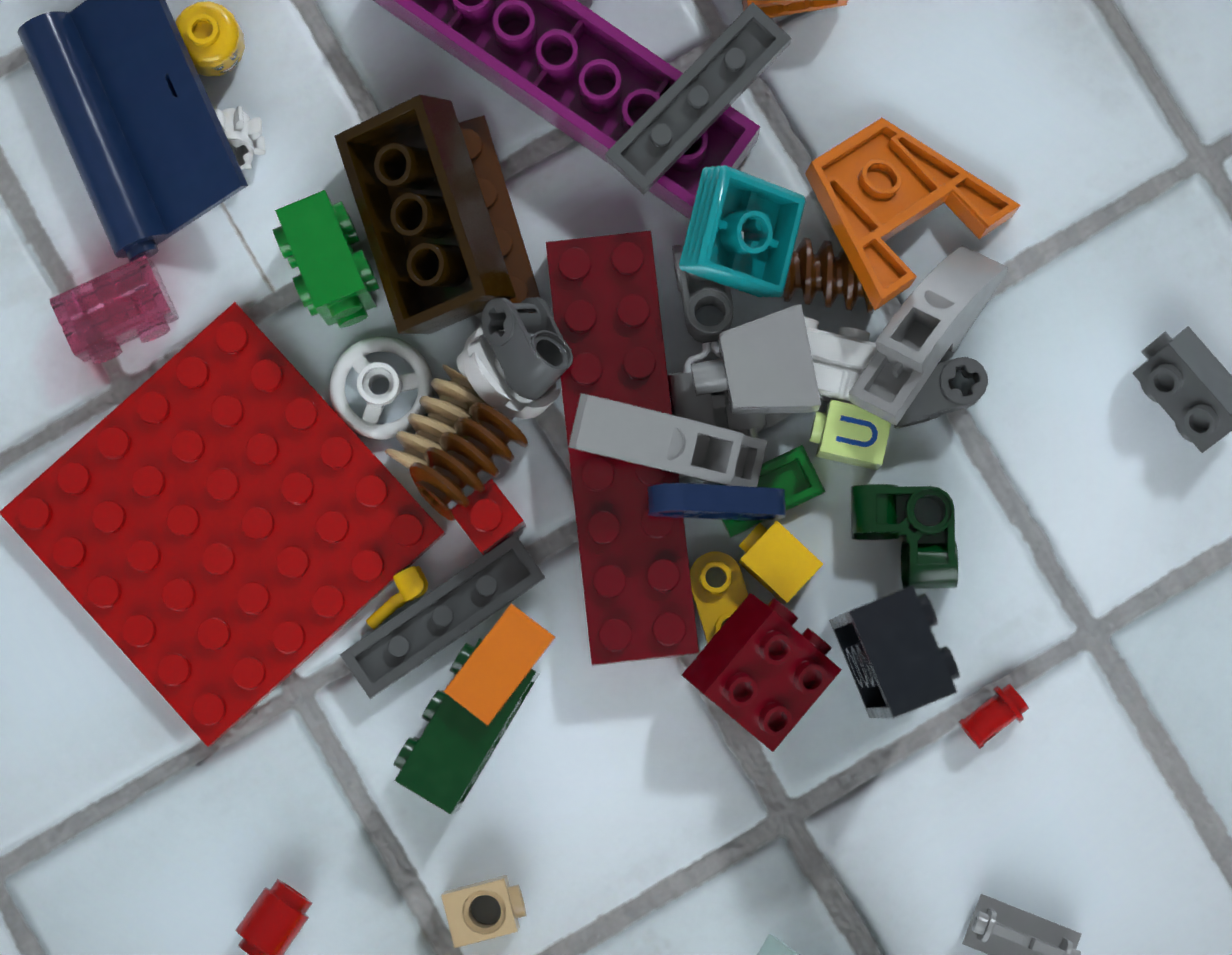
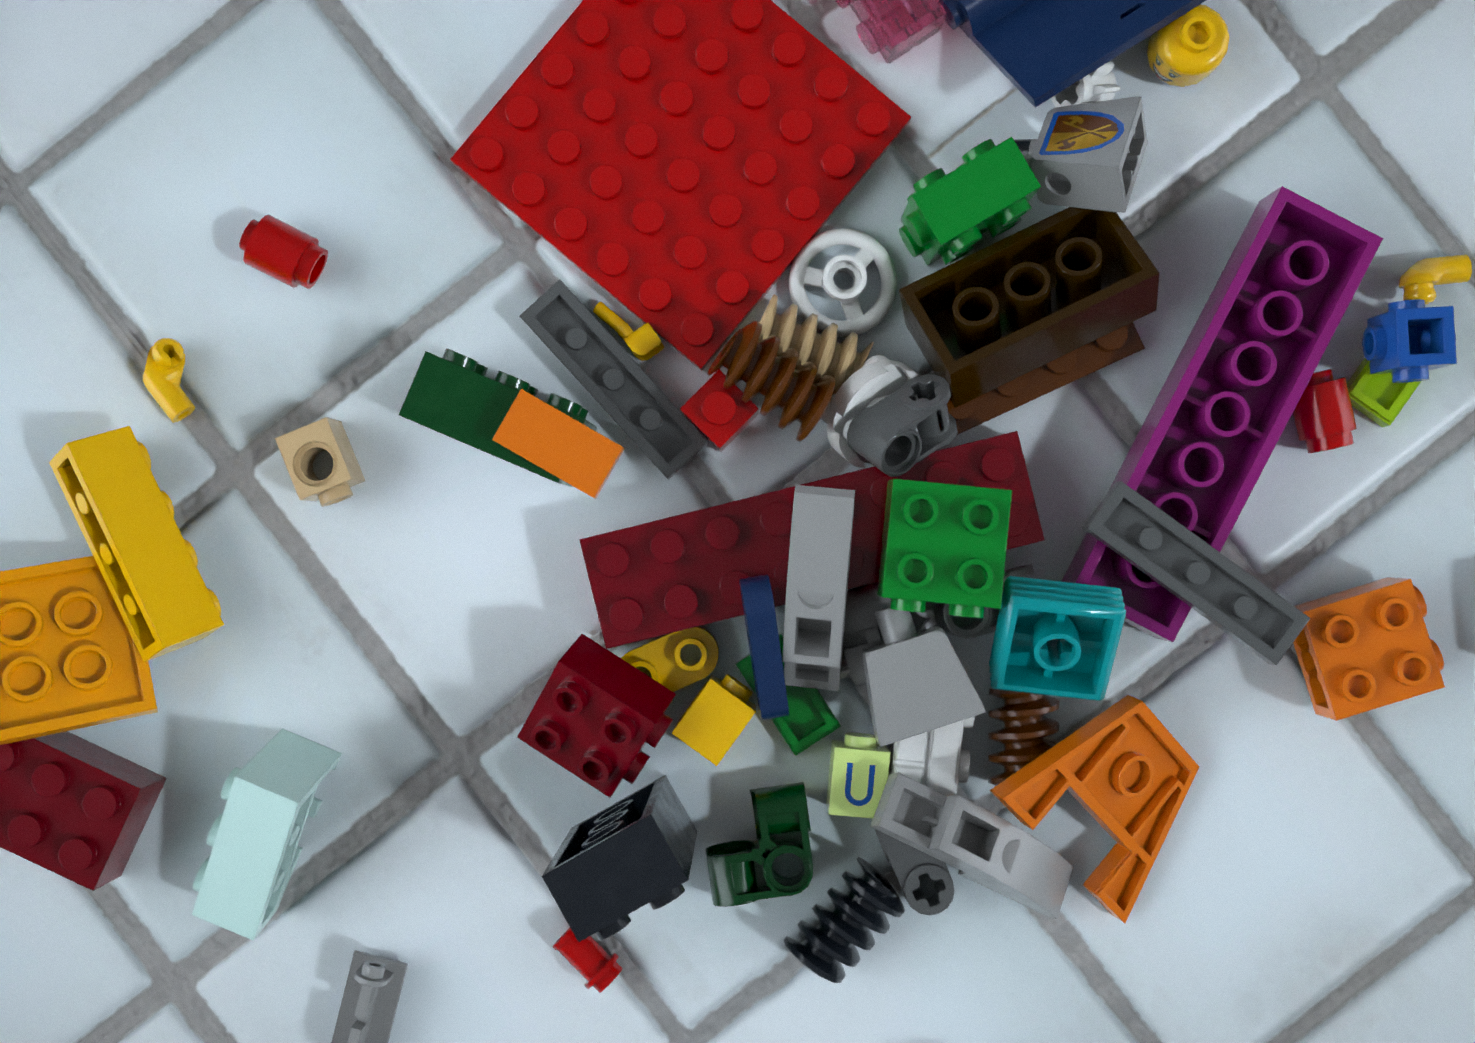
camera: 75 degrees right, 5 degrees up
(298, 143) = (1089, 154): none -> light grey torso
(643, 322) = (944, 546): none -> green brick
(988, 463) = (847, 924): none -> black piece

